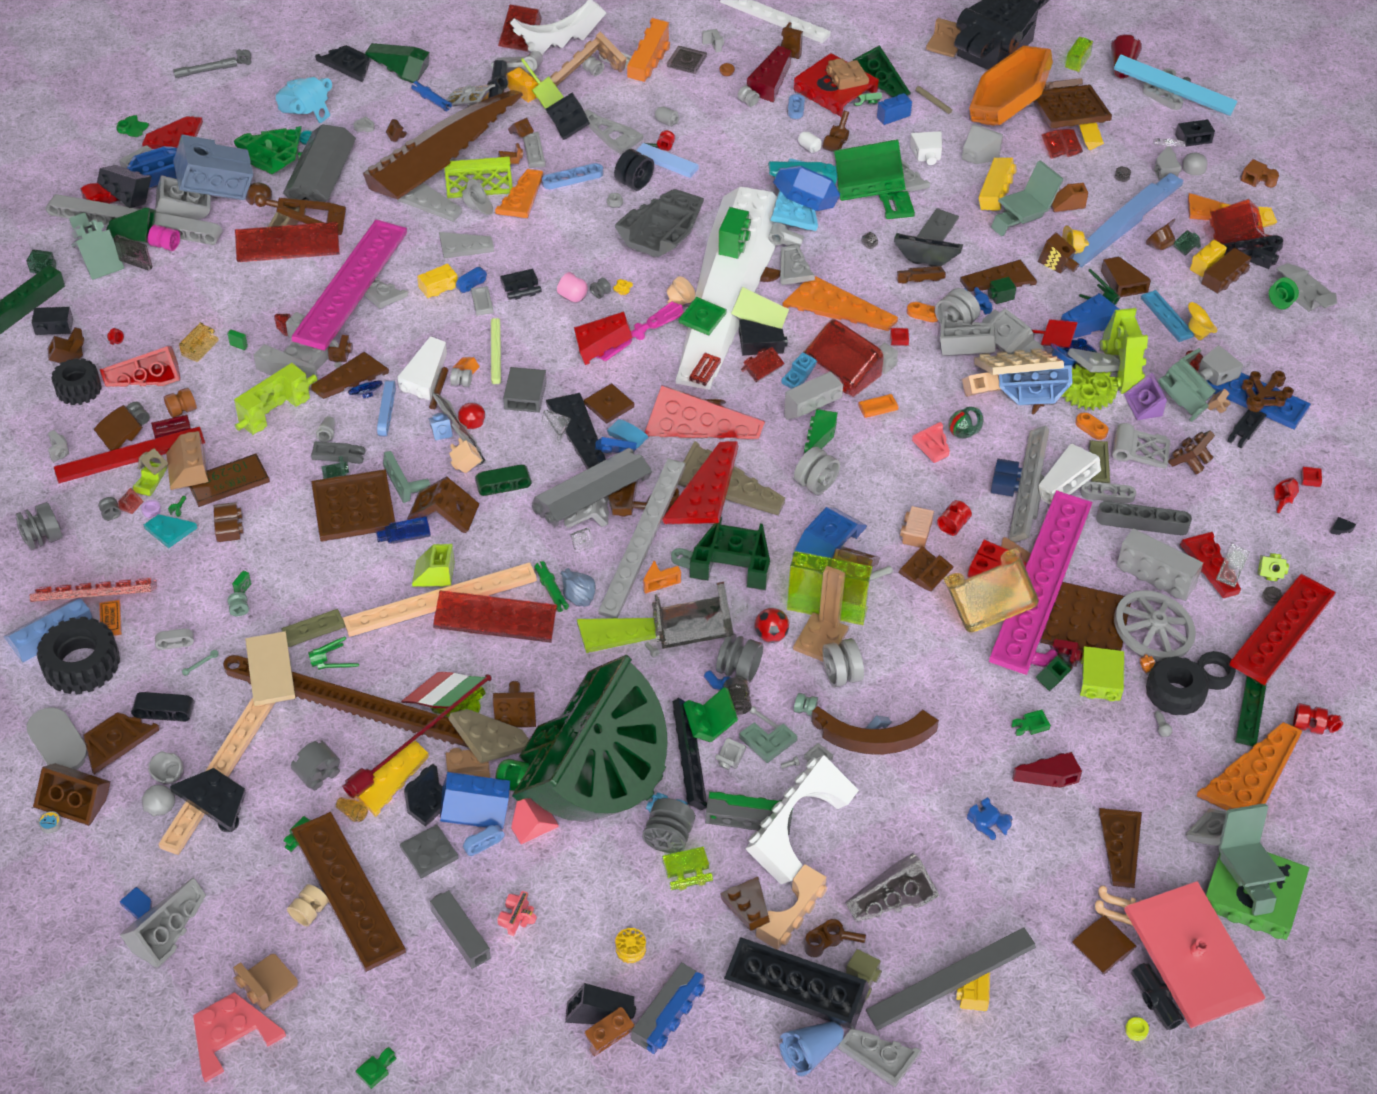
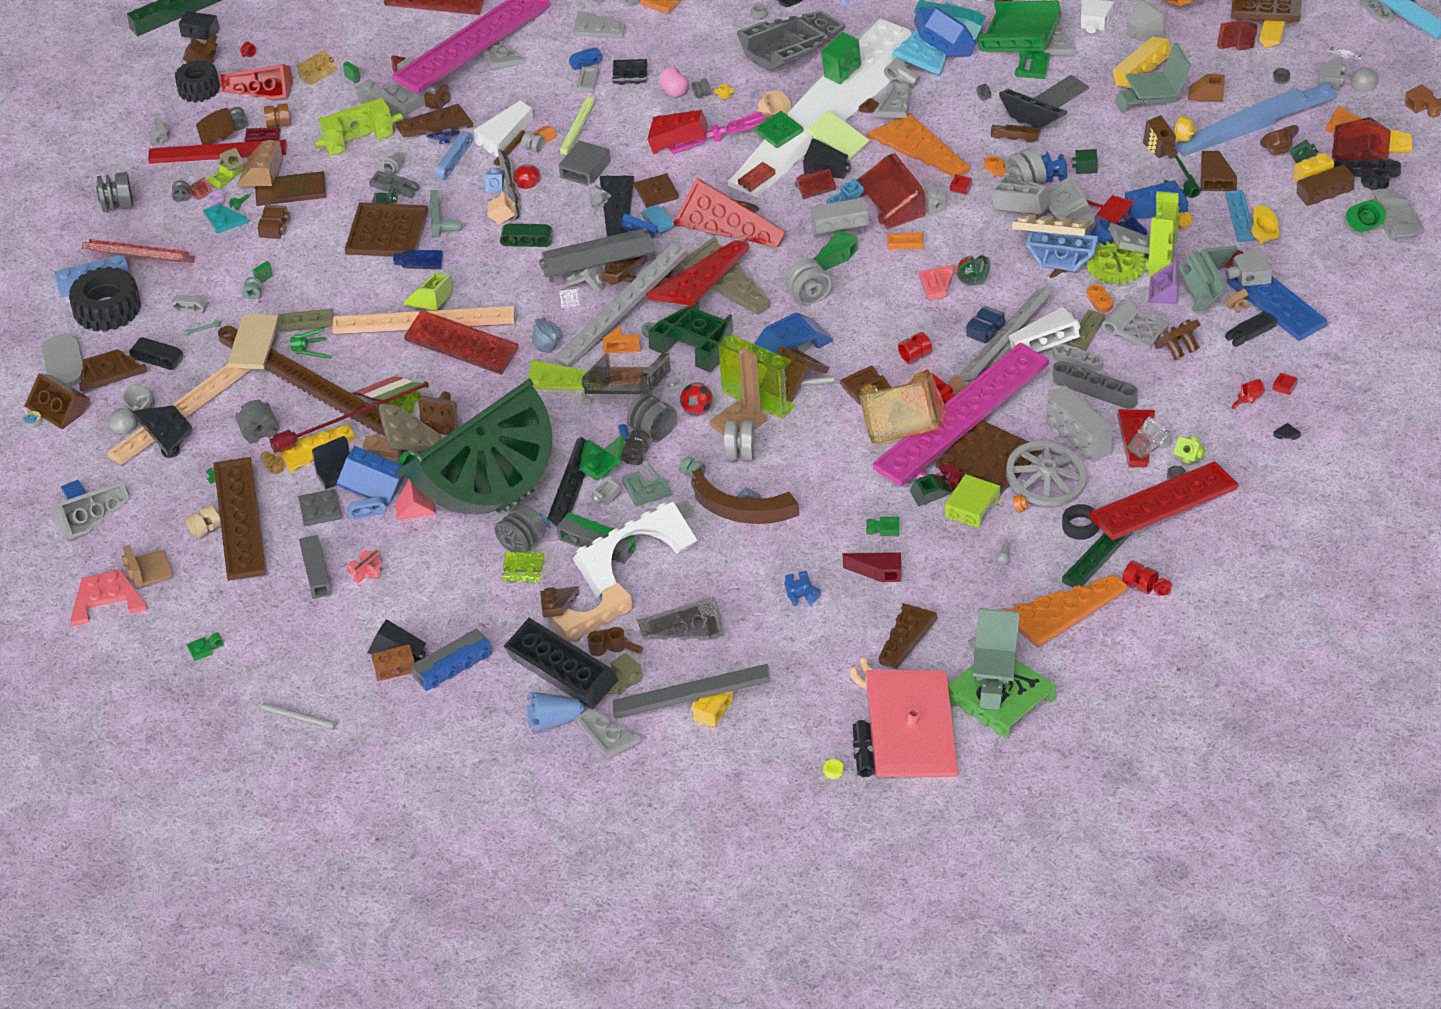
camera: 25 degrees right, 5 degrees down
(111, 615) = (145, 277): orange tile -> none
(437, 280) = (553, 53): yellow brick -> none
(443, 498) = (461, 238): reddish brown bracket -> none
(548, 580) = (523, 325): green pin -> none
(630, 947) = (445, 611): yellow wheel -> none
(917, 527) = (877, 348): brick -> none
(980, 383) = (1011, 239): light nougat slope -> none
(1015, 270) = (1107, 148): reddish brown wing -> none
(1104, 944) = (842, 702): reddish brown slope -> none
(1175, 699) = (1034, 524): black tyre -> none
(1195, 132) = (1382, 49): black brick -> none
(1257, 402) = (1269, 306): reddish brown plant -> none

